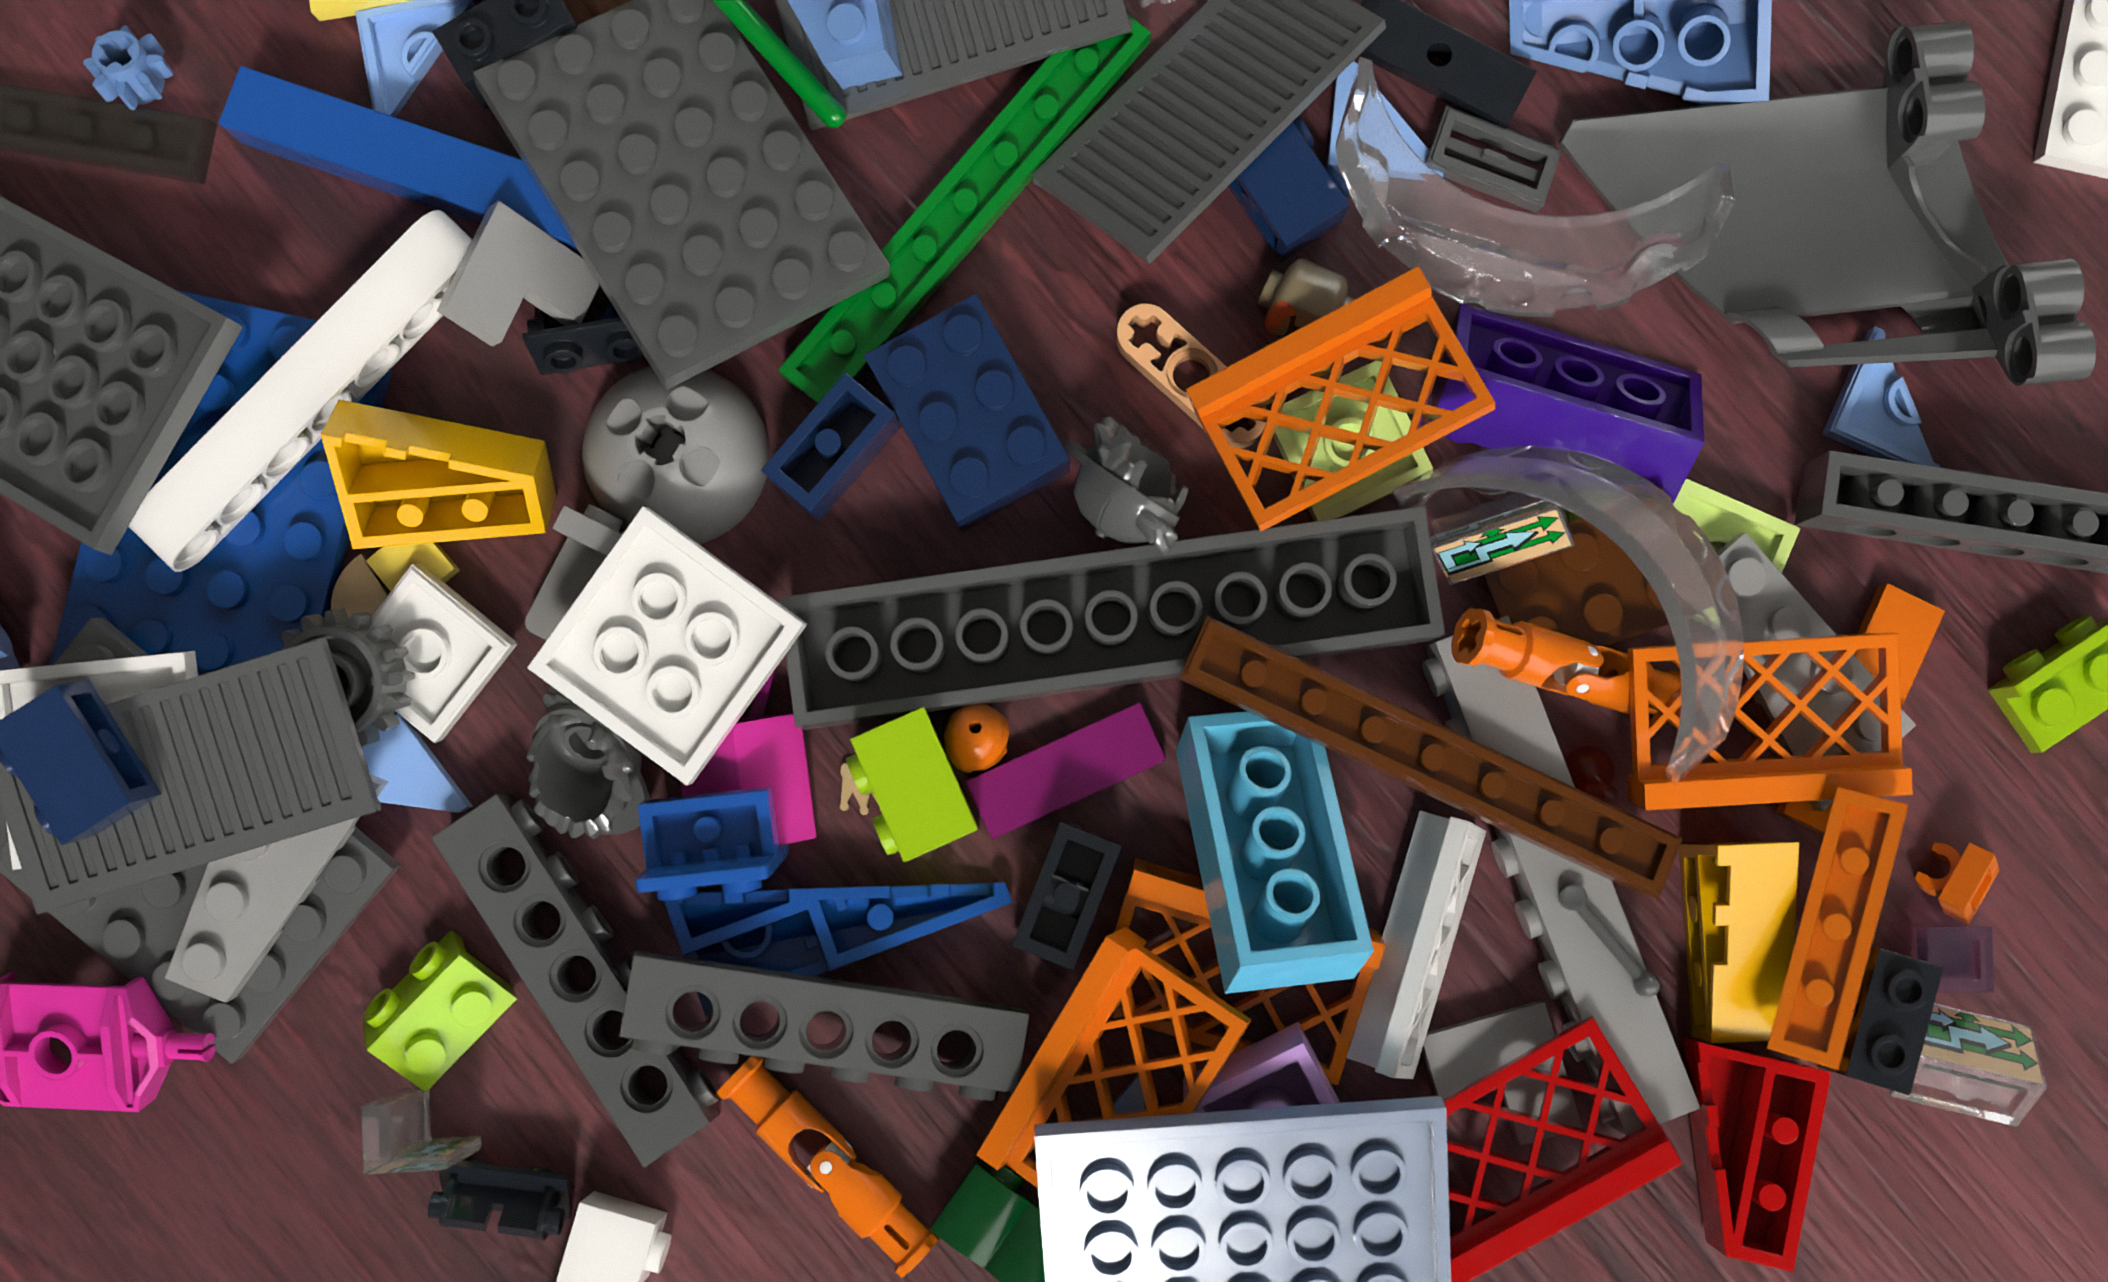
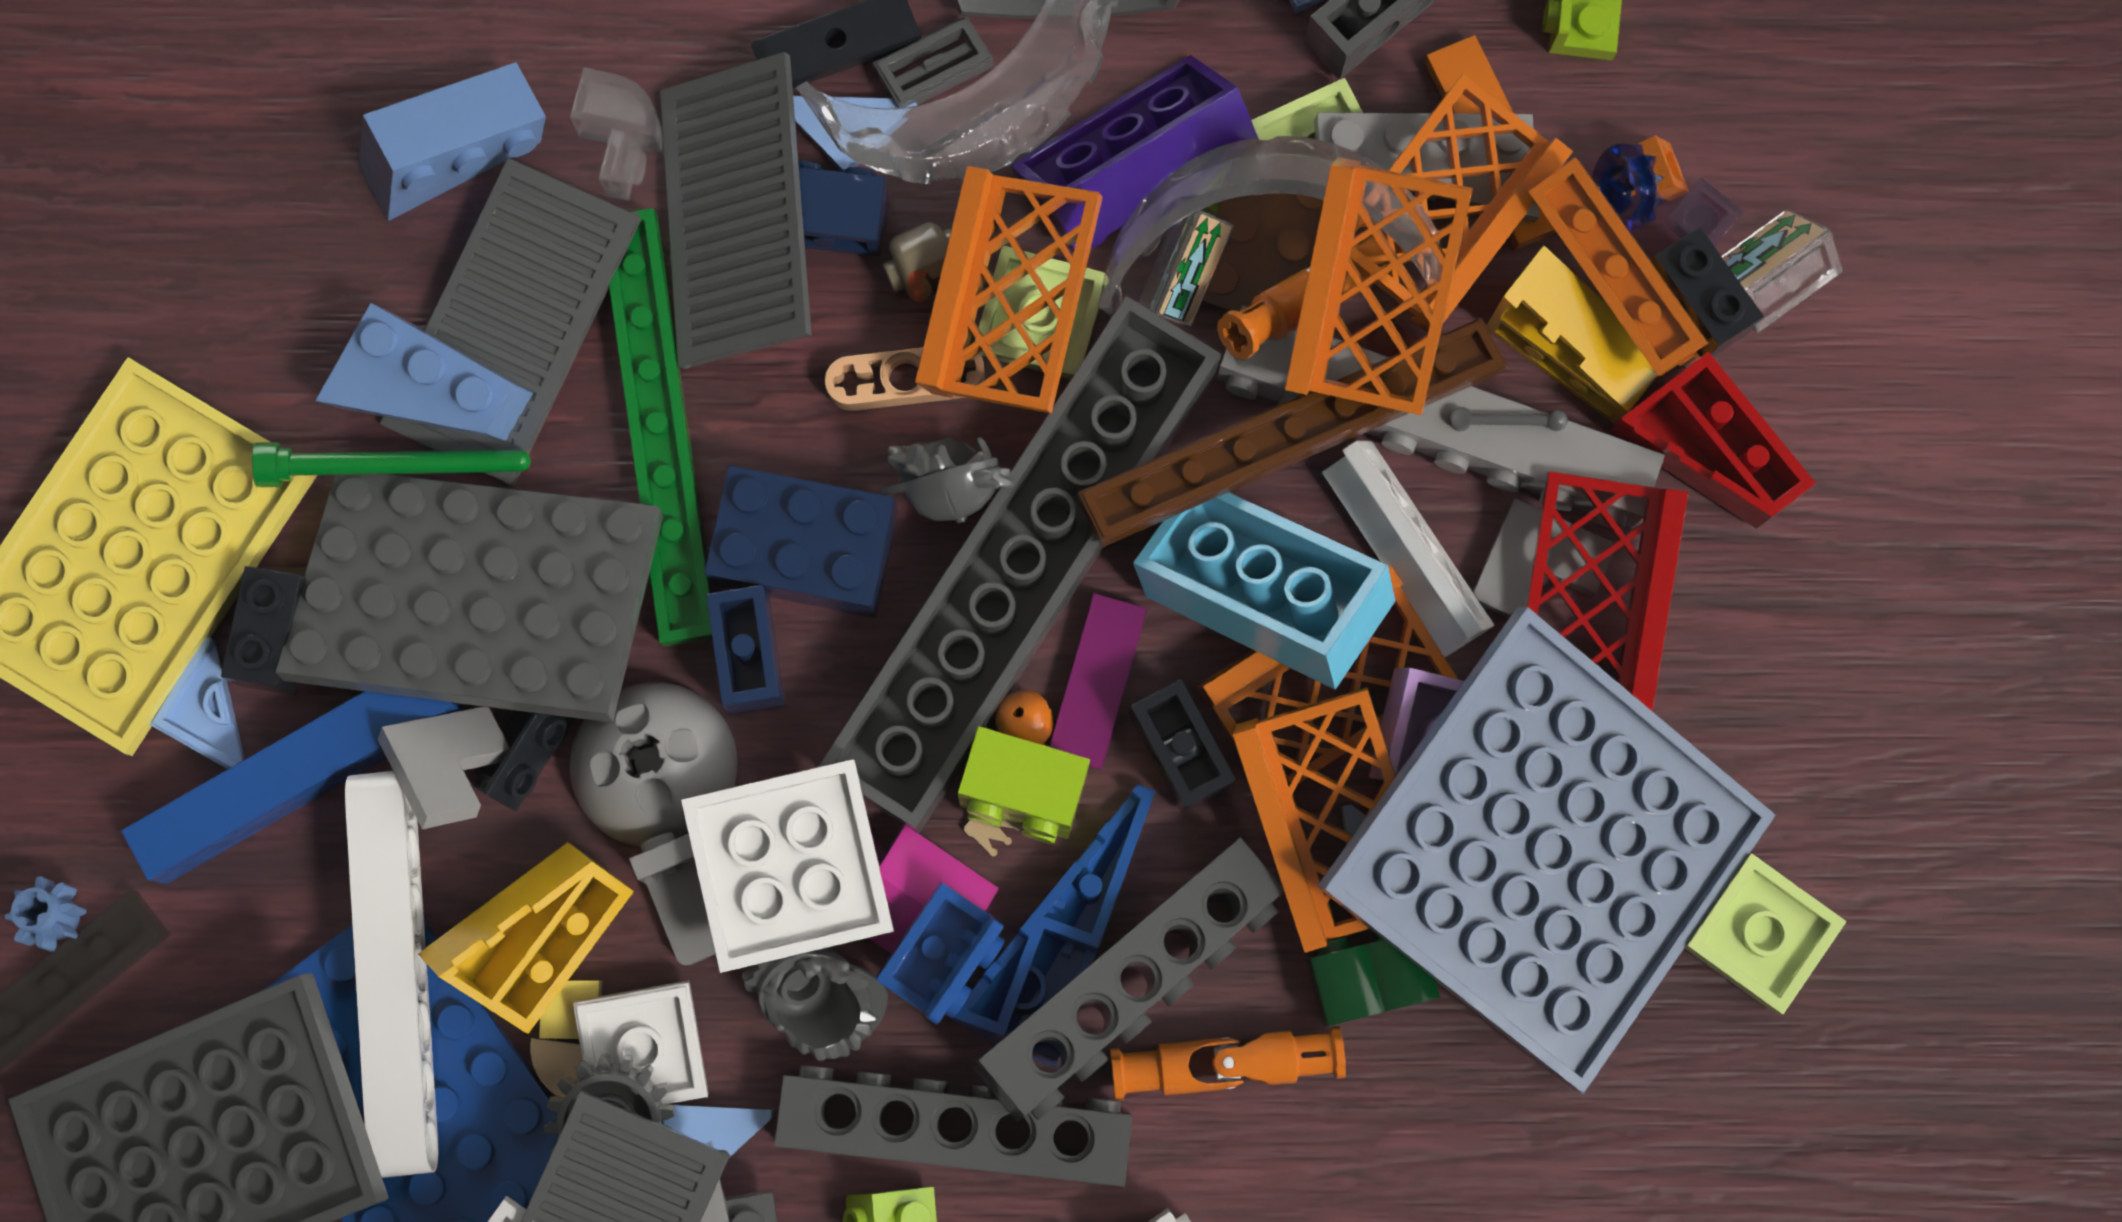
camera: 55 degrees left, 5 degrees down
(1609, 668) = (1328, 277): none -> orange fence
(1944, 846) = (1624, 162): none -> clear blue gear

